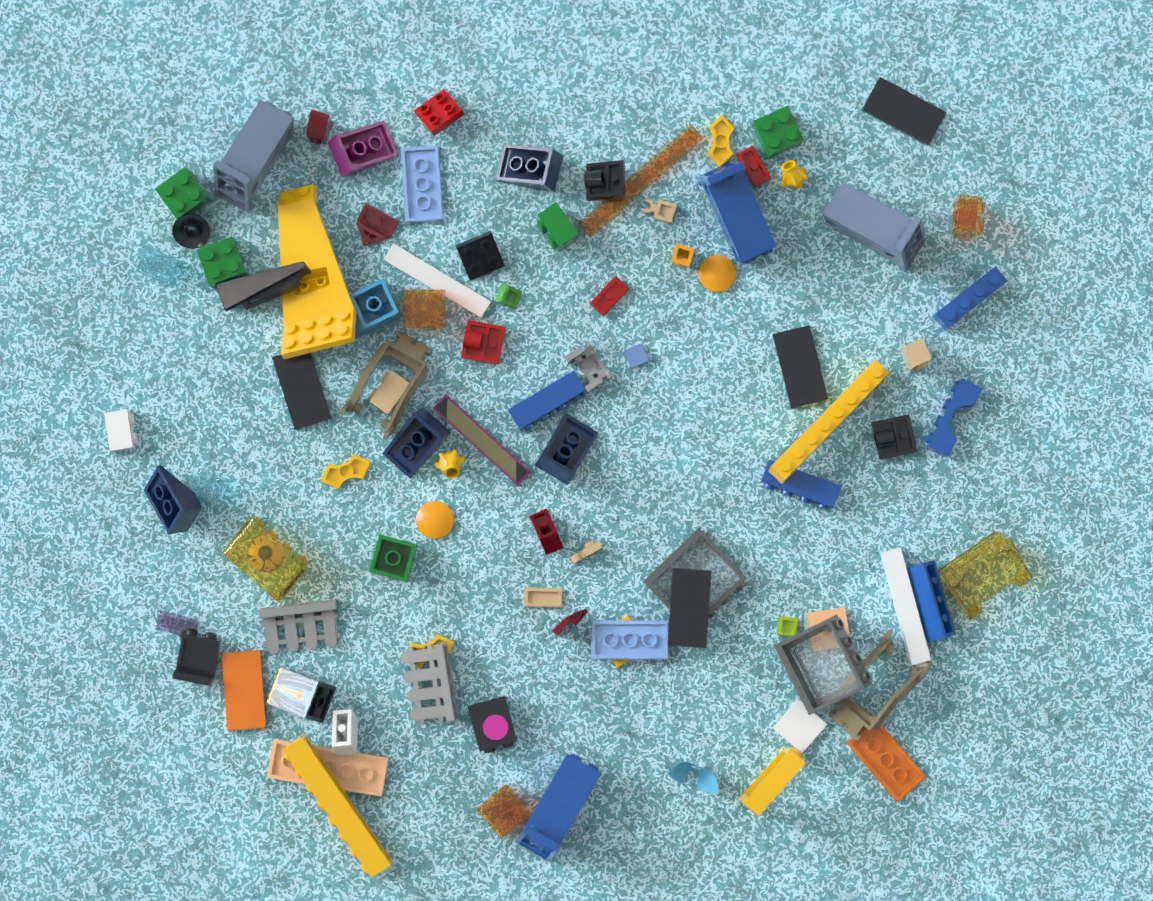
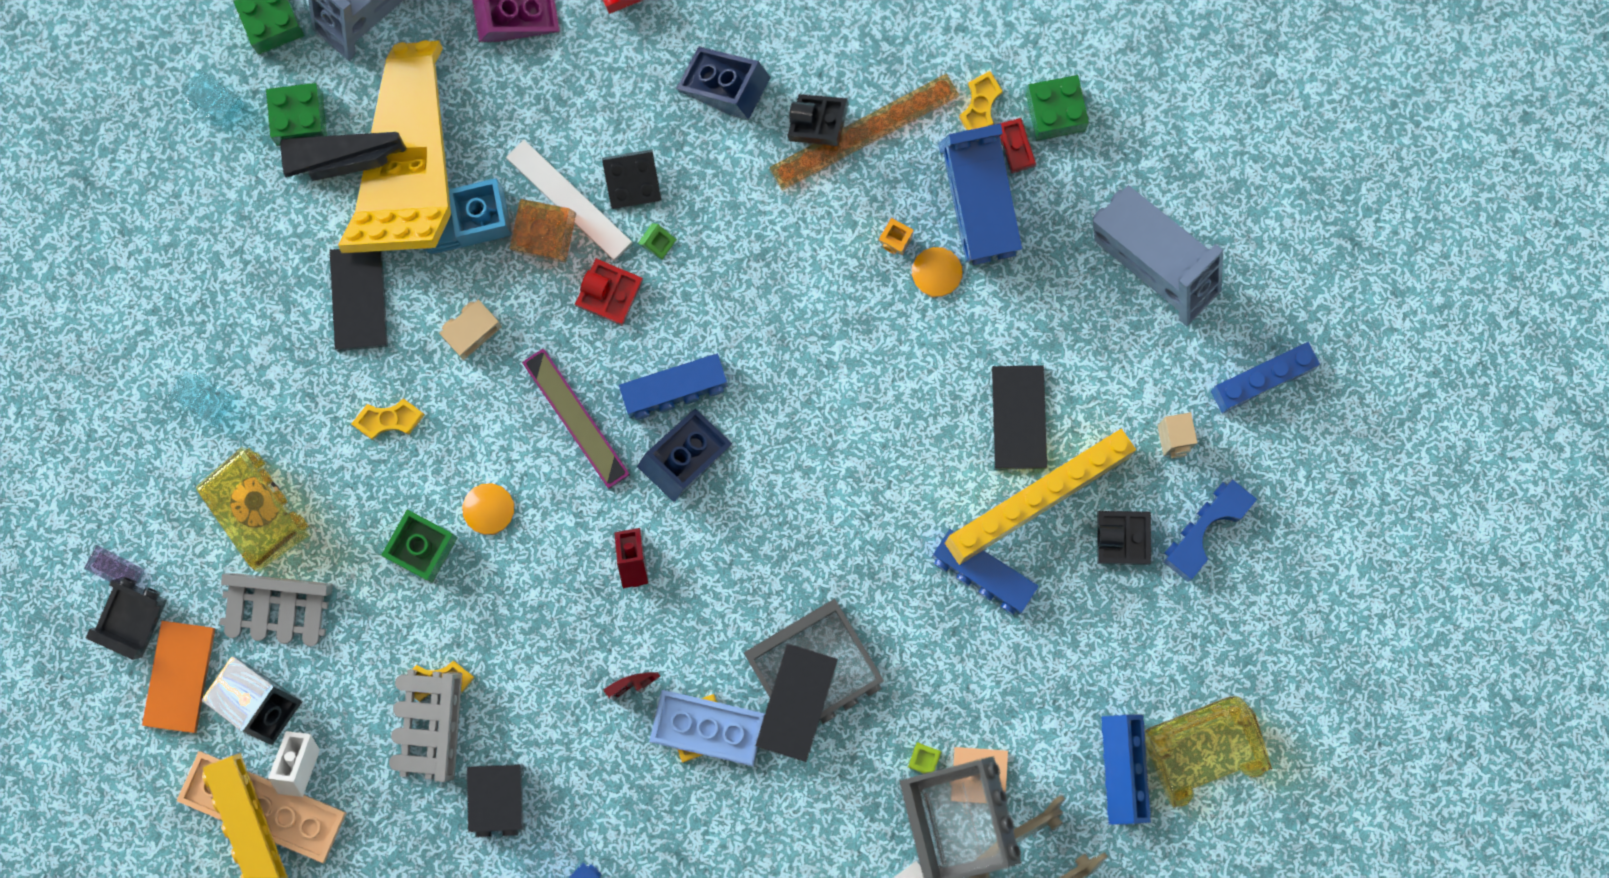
camera: 15 degrees right, 5 degrees down
(120, 430) = (108, 299): white brick -> none
(172, 501) = (149, 405): dark blue slope -> none
(191, 238) = (260, 73): black dish -> none
(375, 225) = (507, 112): dark red slope -> none
(406, 354) = (500, 280): dark tan piece -> none
(416, 442) = (489, 401): dark blue slope -> none
(422, 184) = (580, 74): light blue tile -> none
(450, 463) = (525, 439): yellow rock -> none
(495, 727) = (497, 804): dark pink sticker -> none
(543, 597) = (606, 644): tan tile -> none
(557, 227) = (740, 162): green brick -> none
(589, 366) = (740, 354): light grey piece -> none
(590, 548) = (684, 593): tan plate -> none
(609, 296) = (788, 269): red plate -> none
(636, 356) = (805, 354): medium blue tile -> none
(662, 210) = (884, 176): tan plate -> none
(793, 175) = (1065, 166): yellow rock -> none
(903, 111) = (1228, 118): black tile -> none
(905, 607) = (1090, 770): white brick -> none
(967, 217) = (1284, 269): clear orange brick -> none

